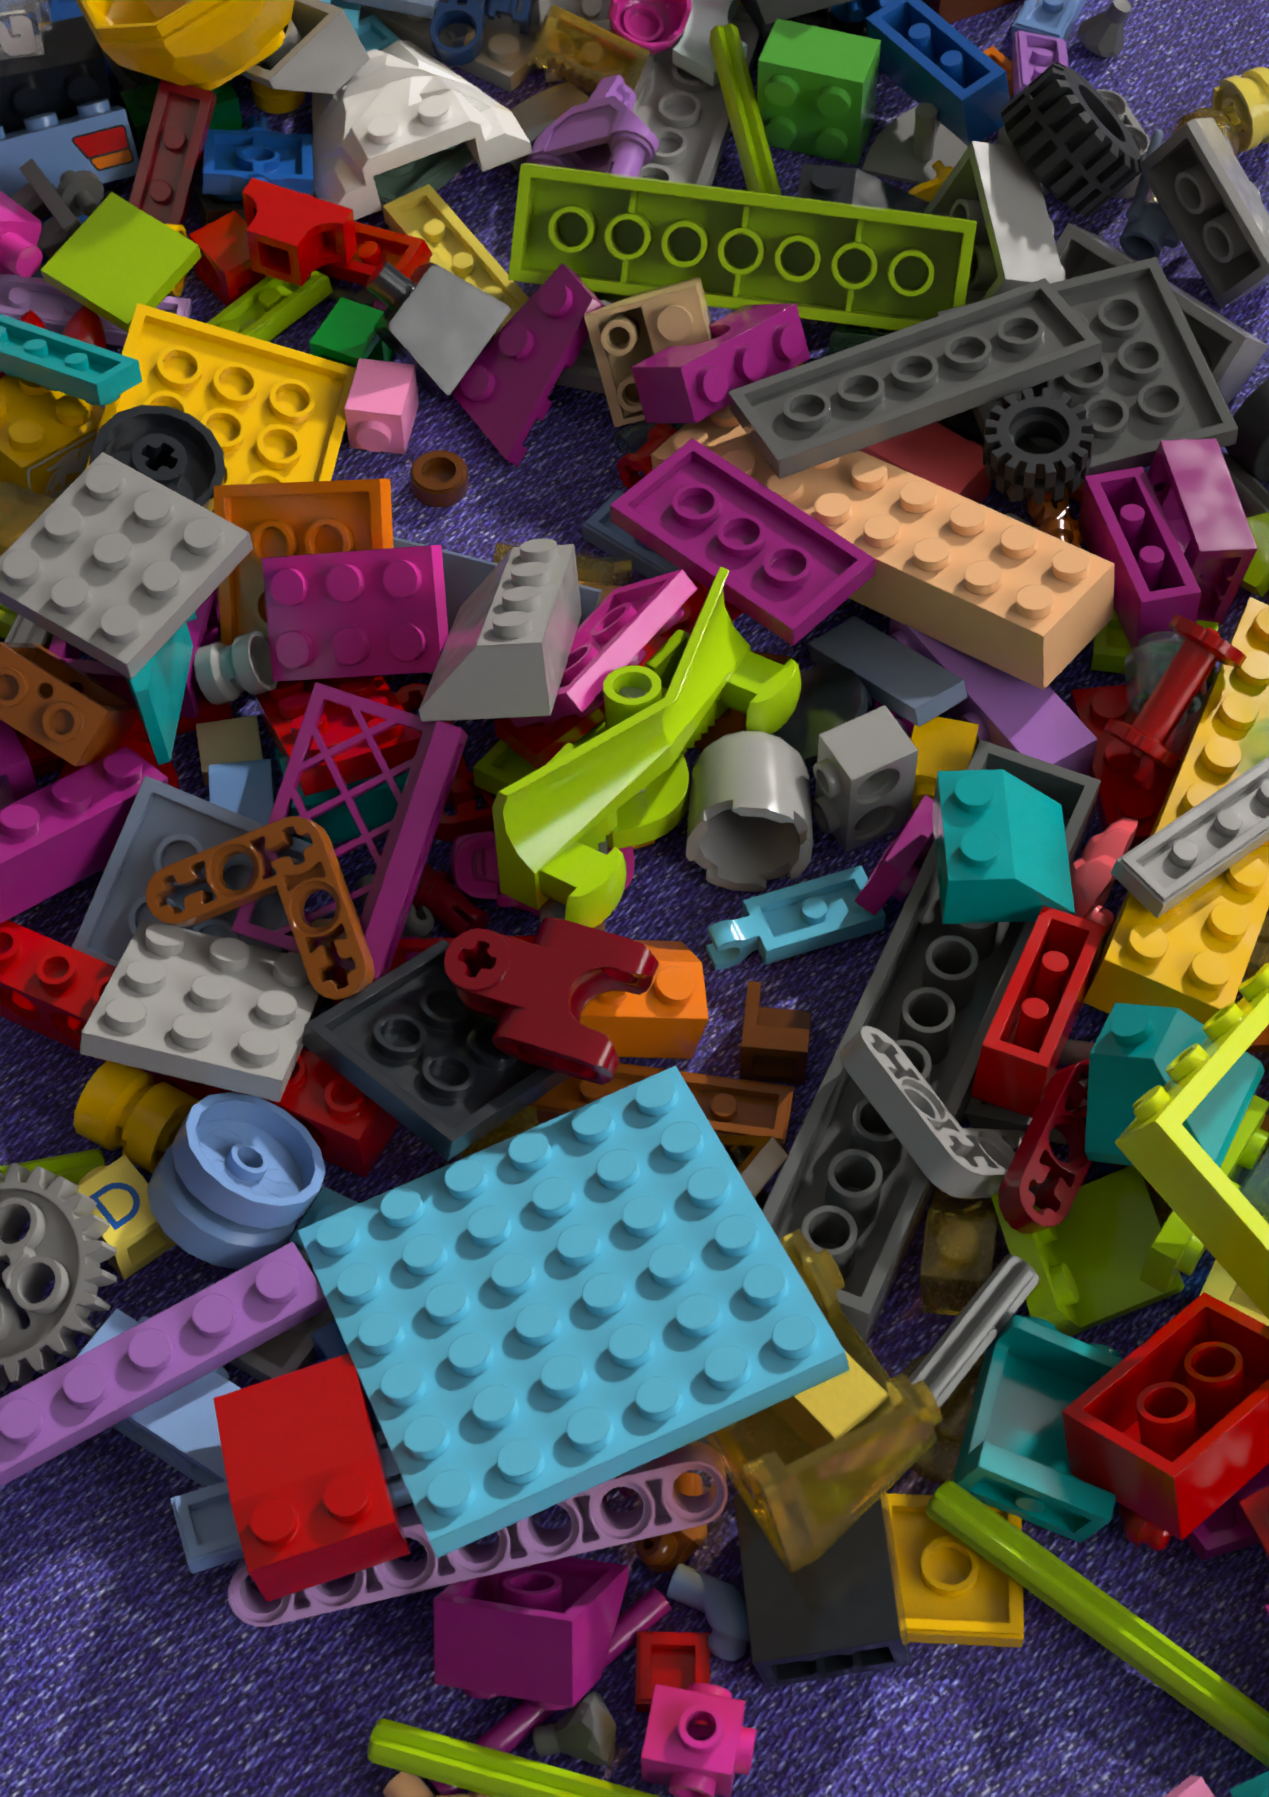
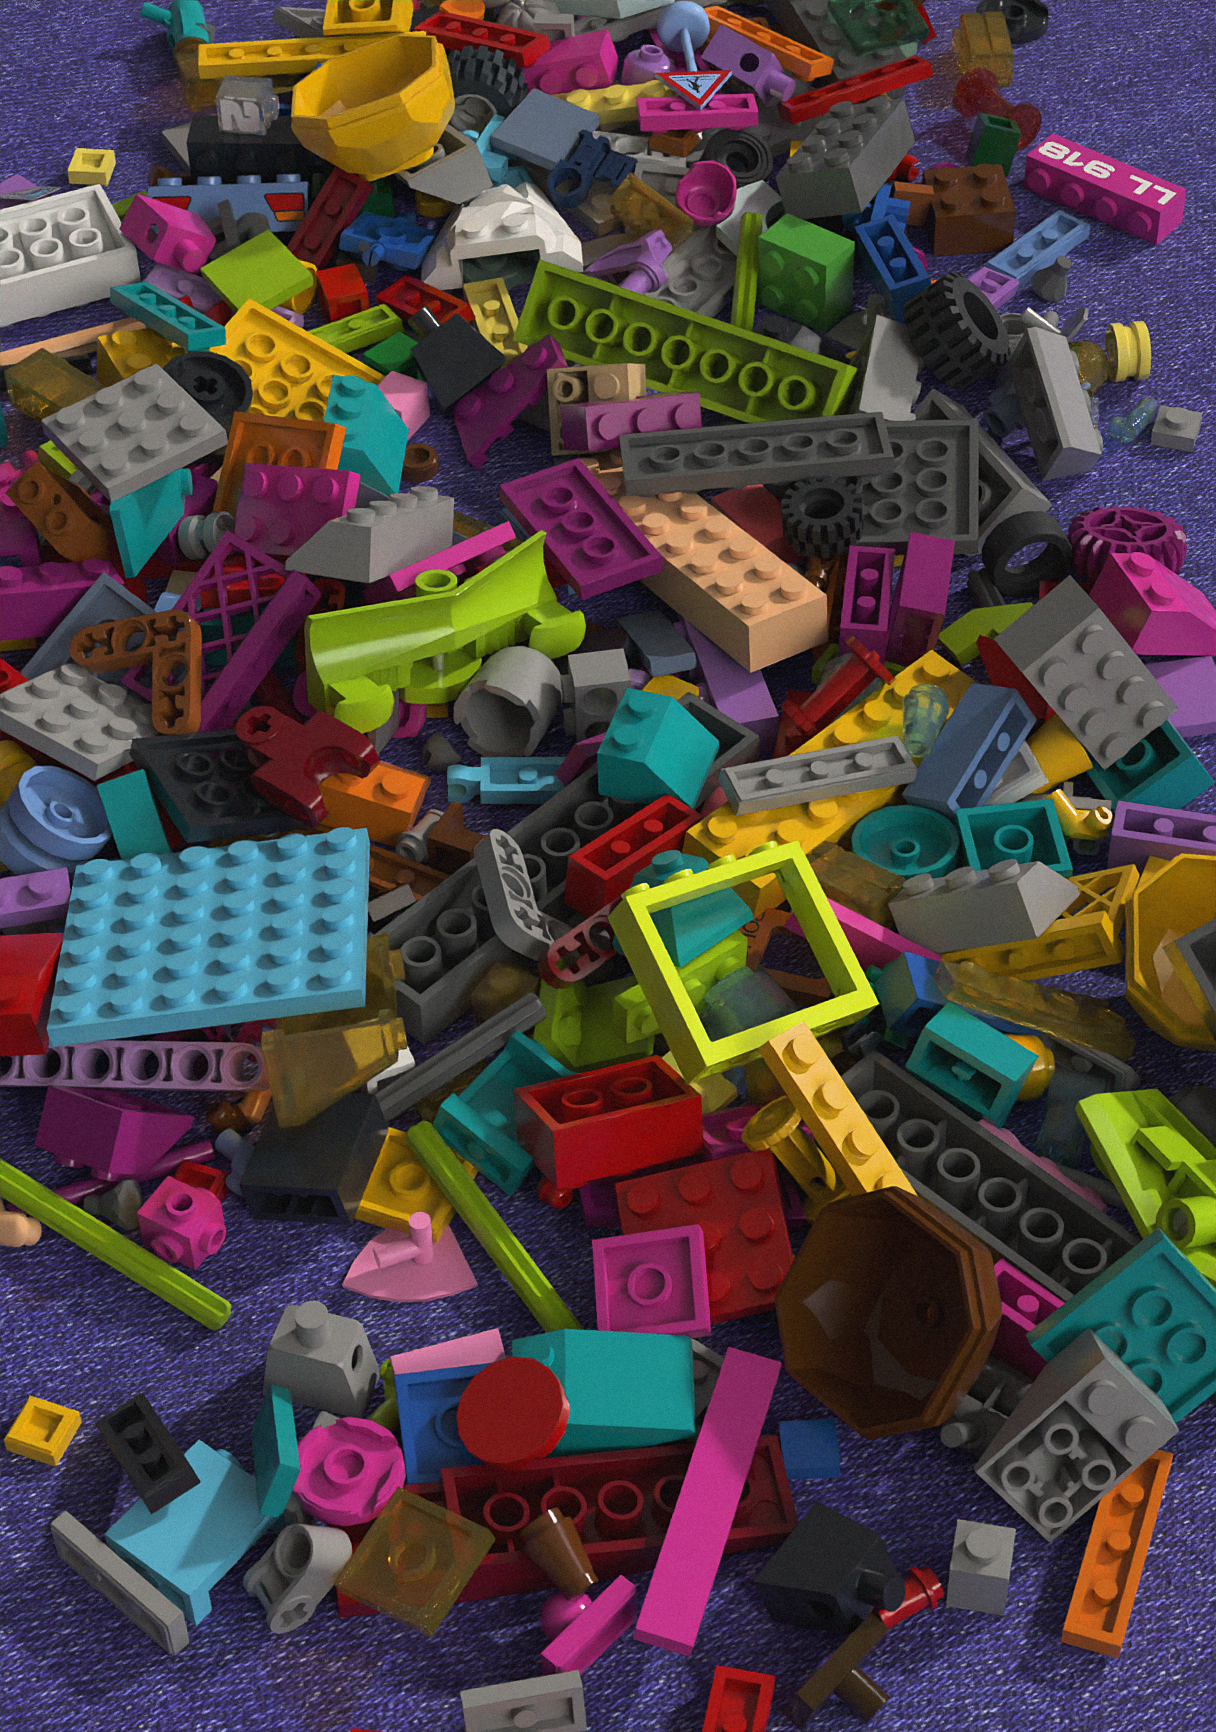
camera: 20 degrees right, 10 degrees down
(295, 232) = (382, 281): red brick -> none
(351, 1138) = (133, 815): none -> teal tile
(357, 439) = (373, 435): none -> teal slope
(682, 901) = (439, 753): none -> dark grey hinge
(717, 1049) = (414, 843): none -> light grey pin
(1004, 1695) = (410, 1265): none -> bright pink shield
(1165, 99) = (1050, 321): none -> light grey shield

